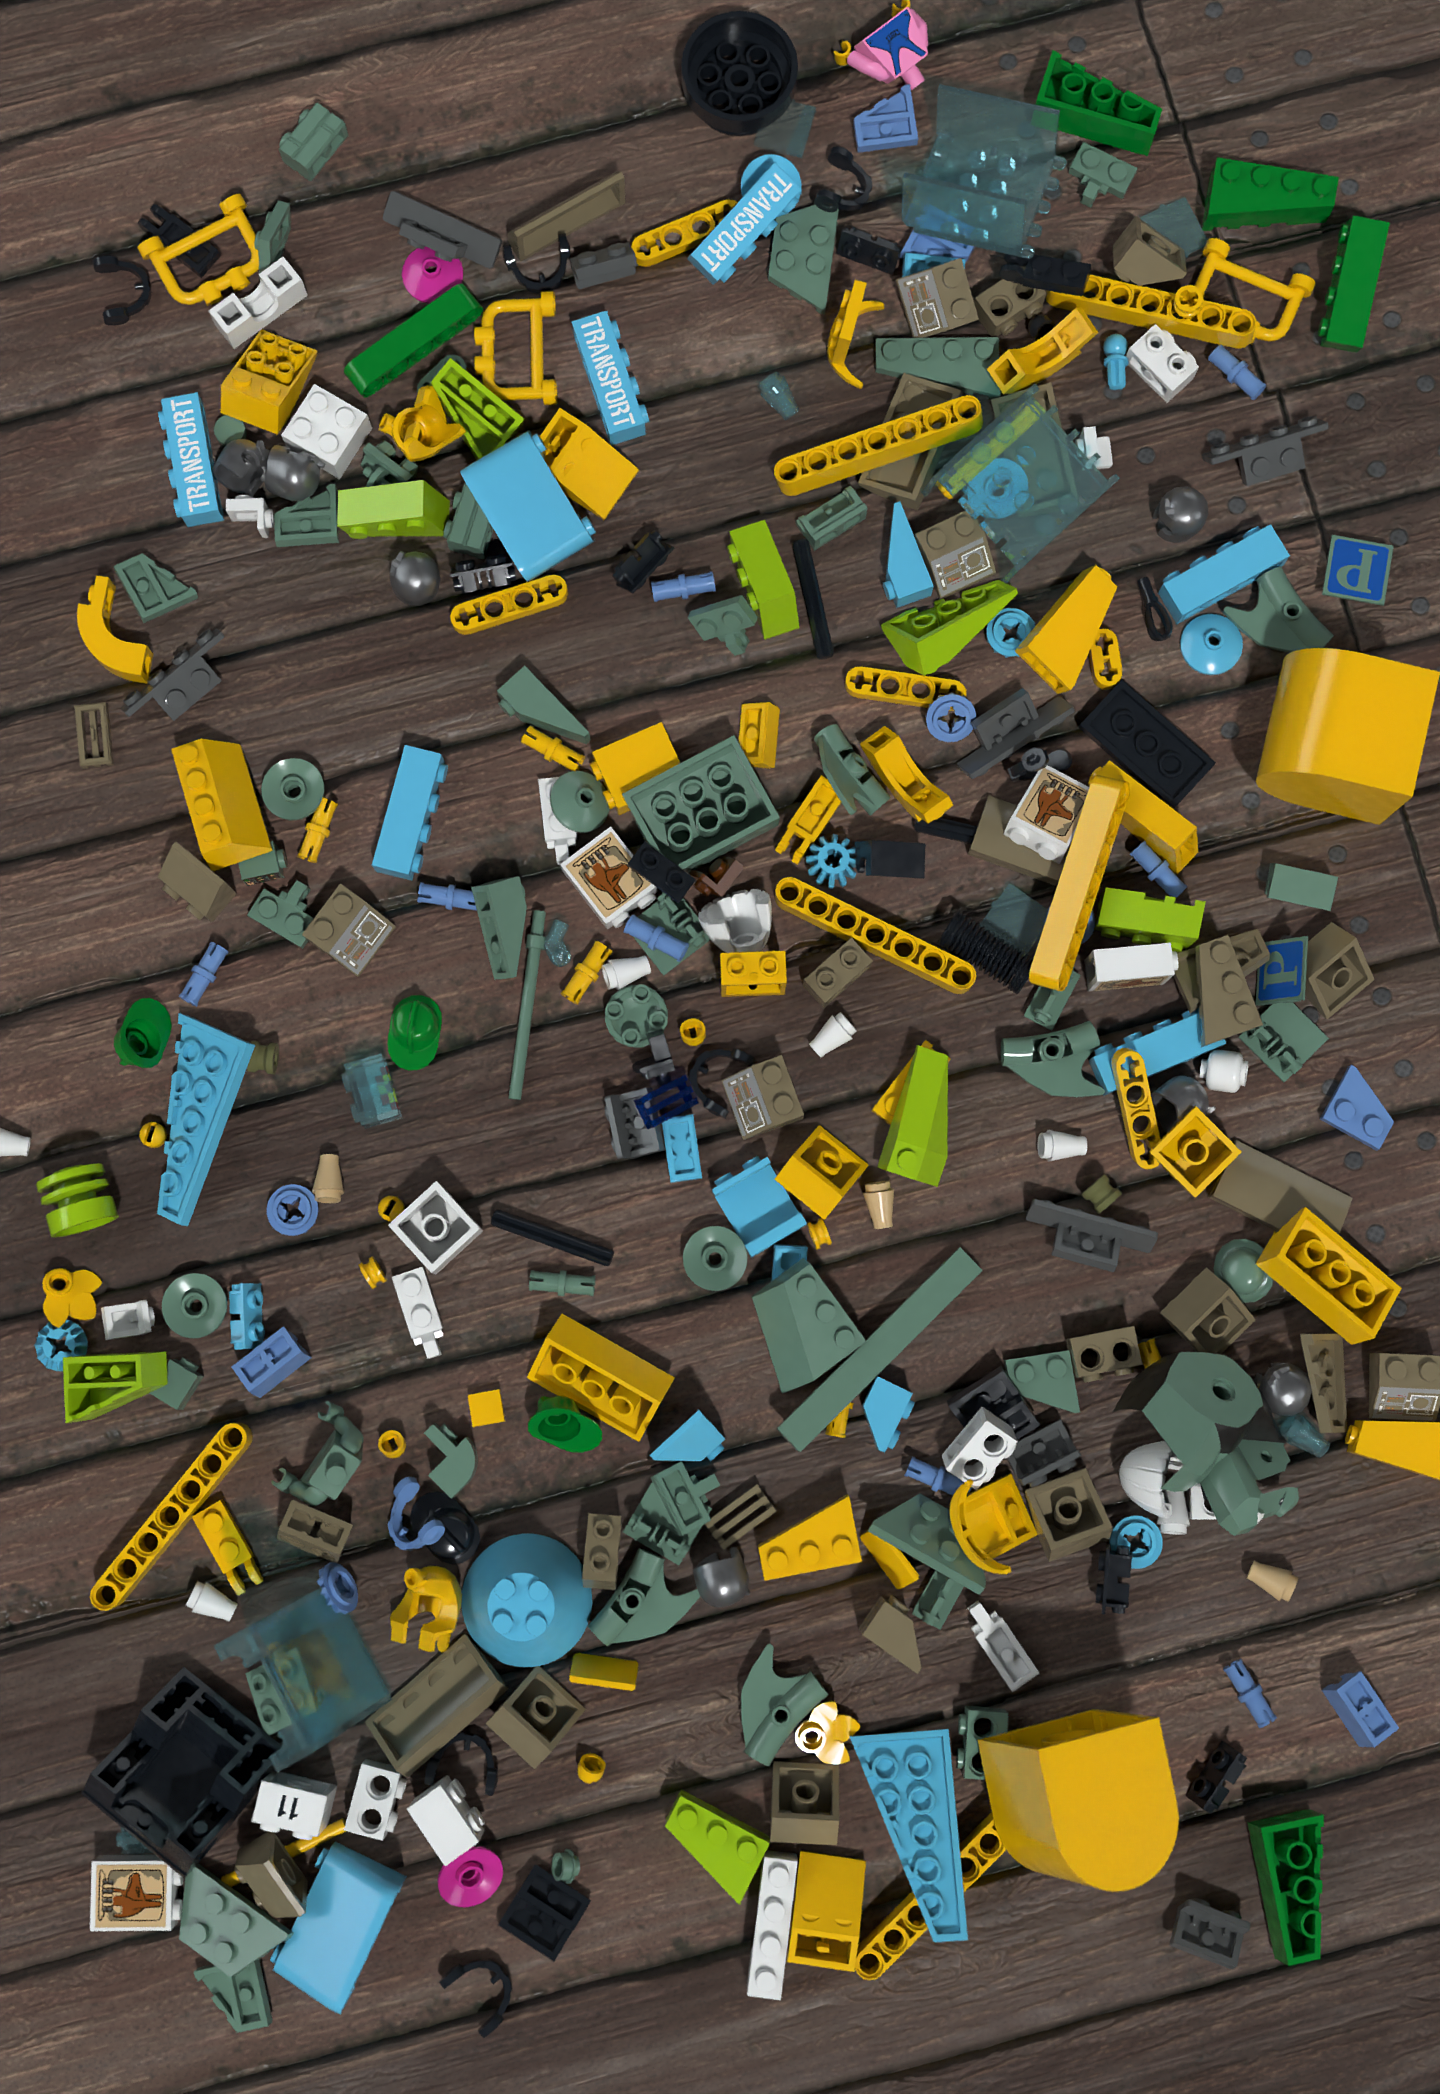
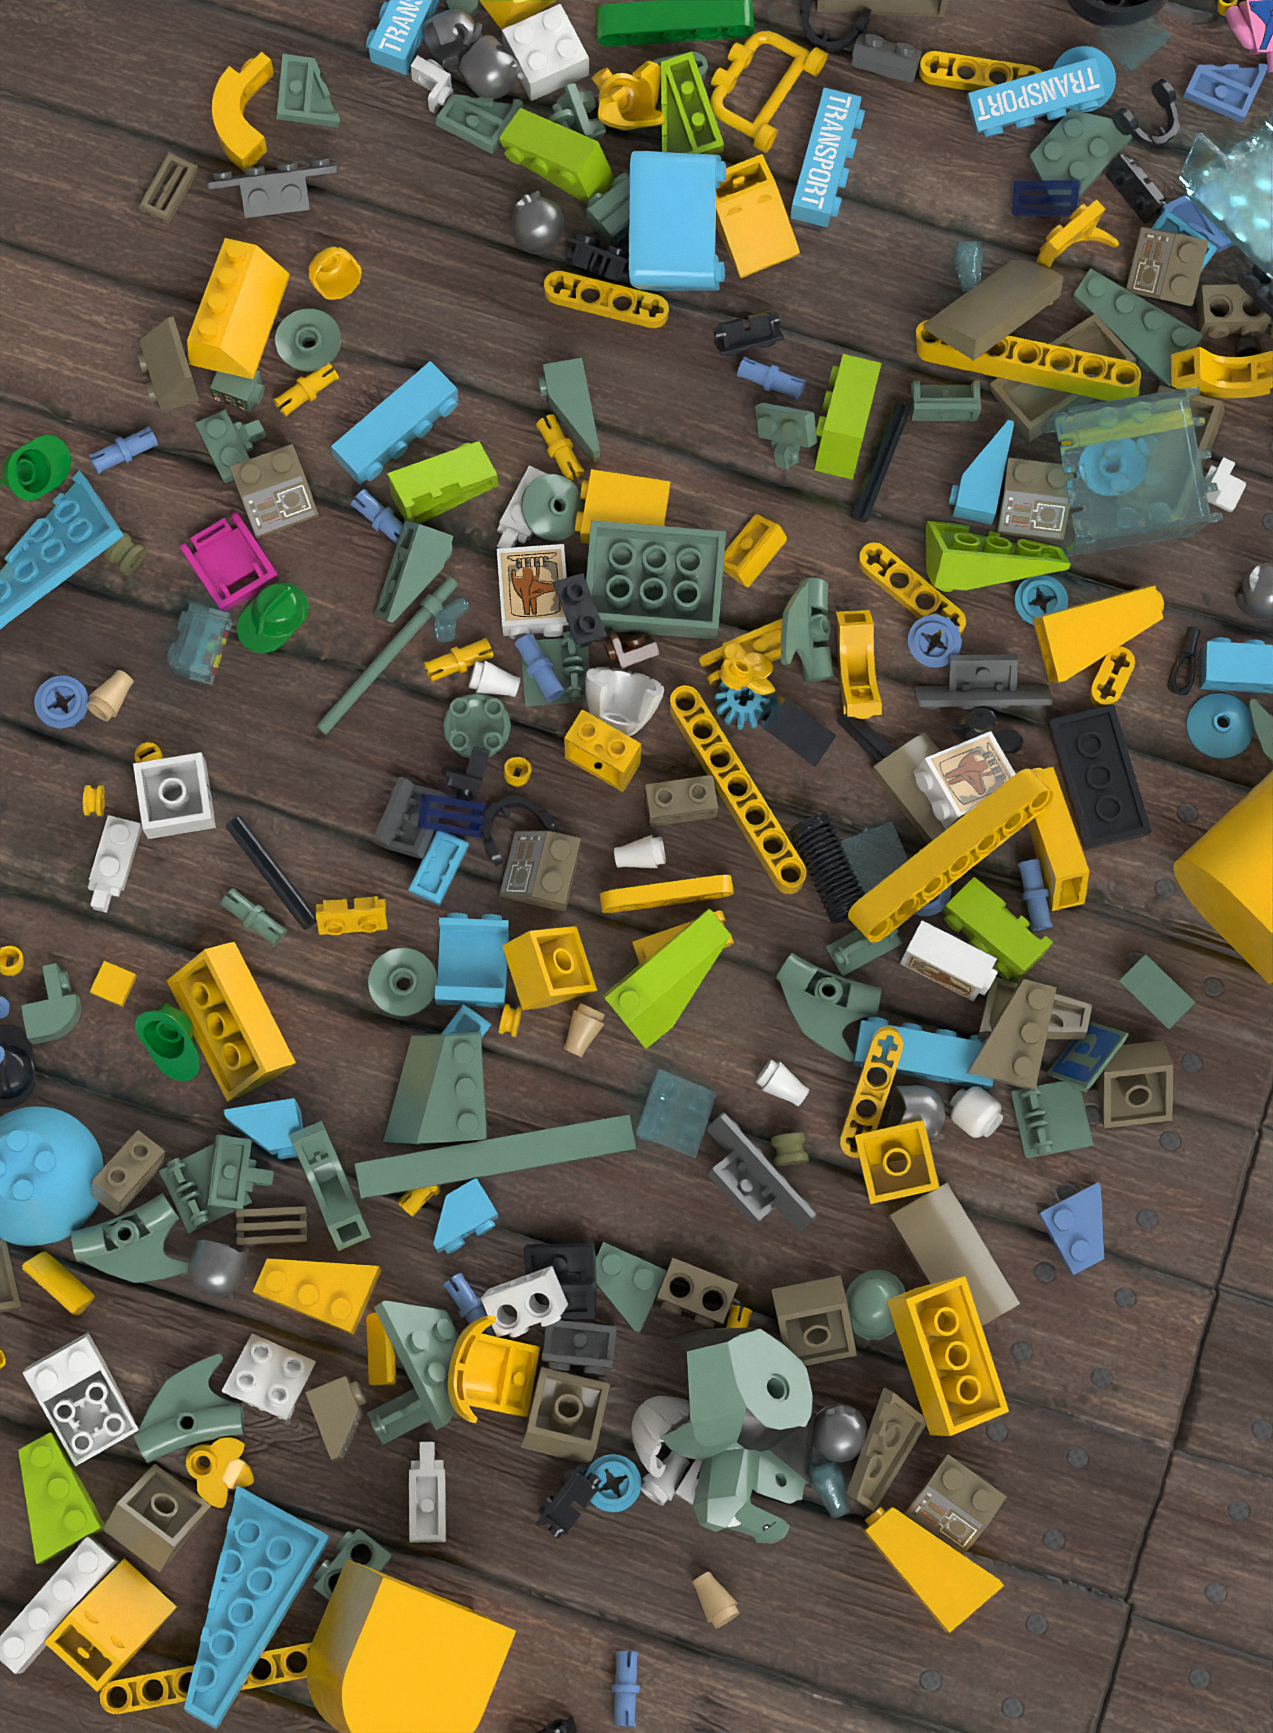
camera: 30 degrees right, 5 degrees down
(278, 721) = (334, 273): none -> yellow hair
(345, 1009) = (226, 558): none -> dark pink container
(479, 837) = (442, 482): none -> lime wedge
(651, 1224) = (335, 917): none -> yellow hinge
(683, 1751) = (80, 1399): none -> white slope
(768, 1458) = (330, 1185): none -> sand green arch
(776, 305) = (1074, 198): none -> clear blue tile
(818, 1636) = (269, 1377): none -> white hinge
(822, 836) = (746, 670): none -> yellow plate
(825, 417) = (996, 307): none -> dark tan slope
(874, 1054) = (666, 893): none -> yellow beam
(995, 1222) = (675, 1113): none -> clear light blue hinge

